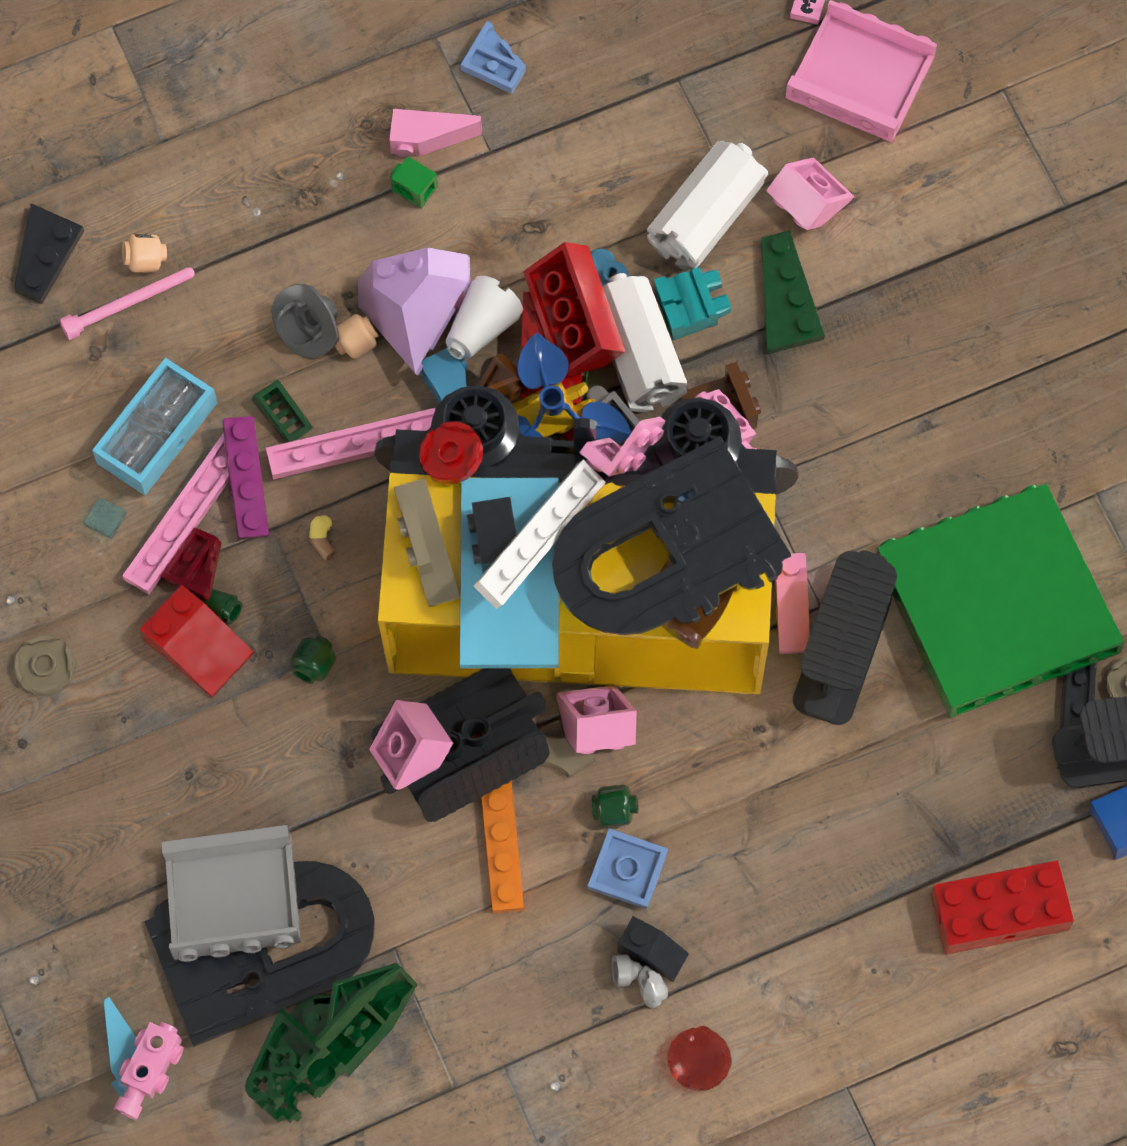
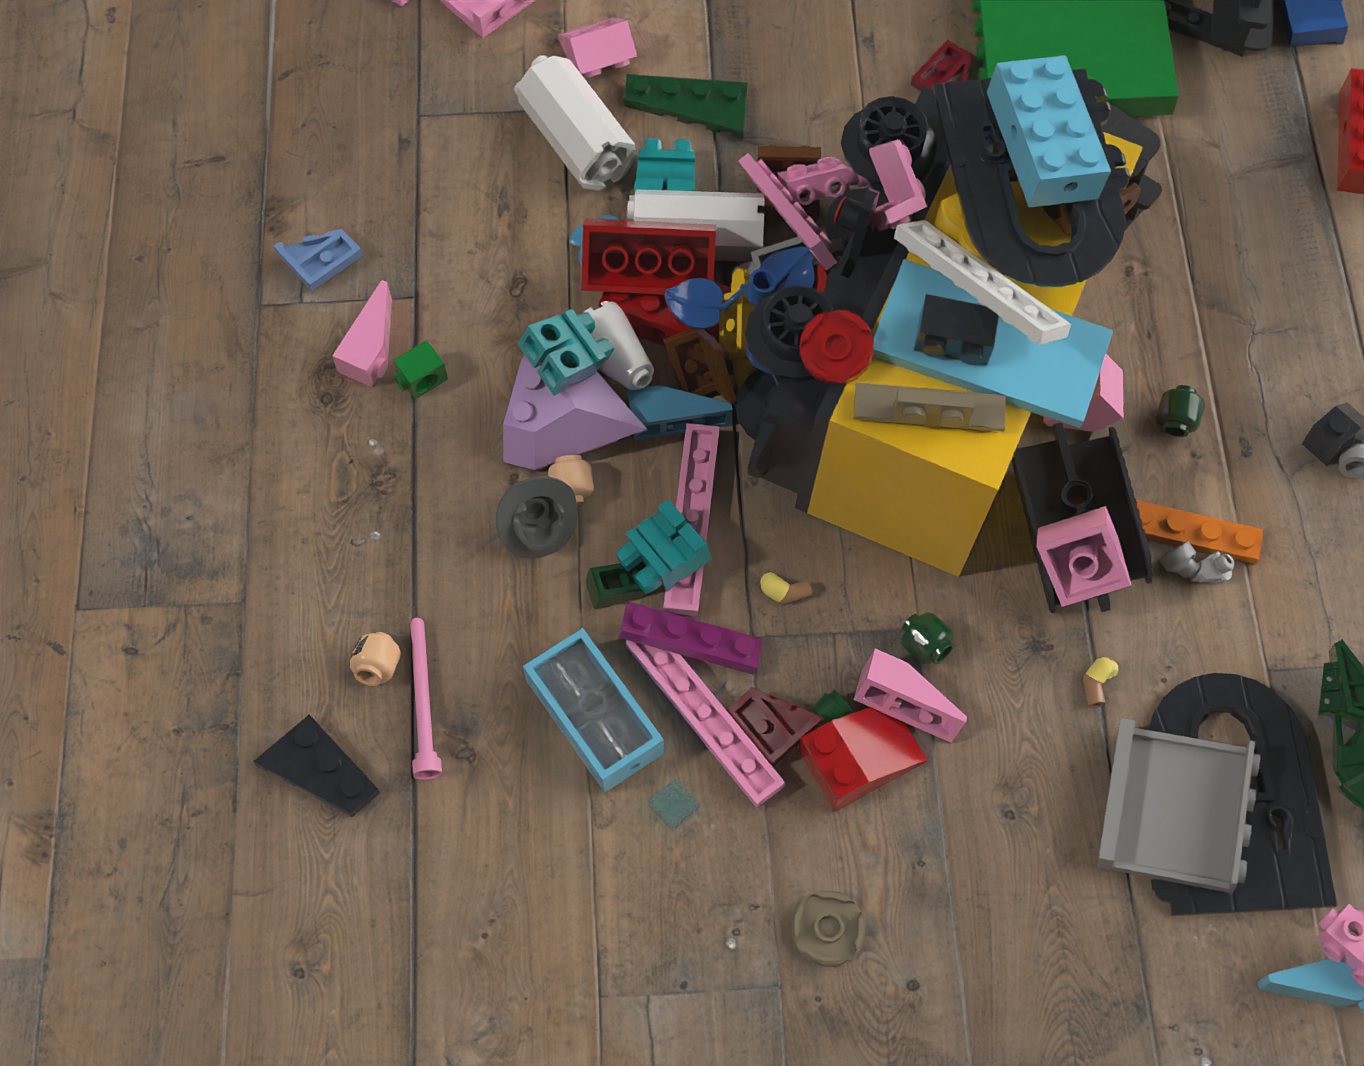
camera: 70 degrees left, 5 degrees down
(256, 650) = (906, 695): none -> bright pink slope
(311, 426) = (666, 547): none -> teal hips
(331, 806) = (1094, 679): none -> arm
(443, 283) = (564, 349): none -> teal hips
(468, 874) = (1211, 569): none -> light grey arm
(628, 869) = (1248, 423): medium blue plate -> none
(684, 385) = (790, 210): none -> bright pink plate
(691, 534) = (1048, 131): none -> medium azure brick
(906, 503) = (946, 65): none -> dark red wing

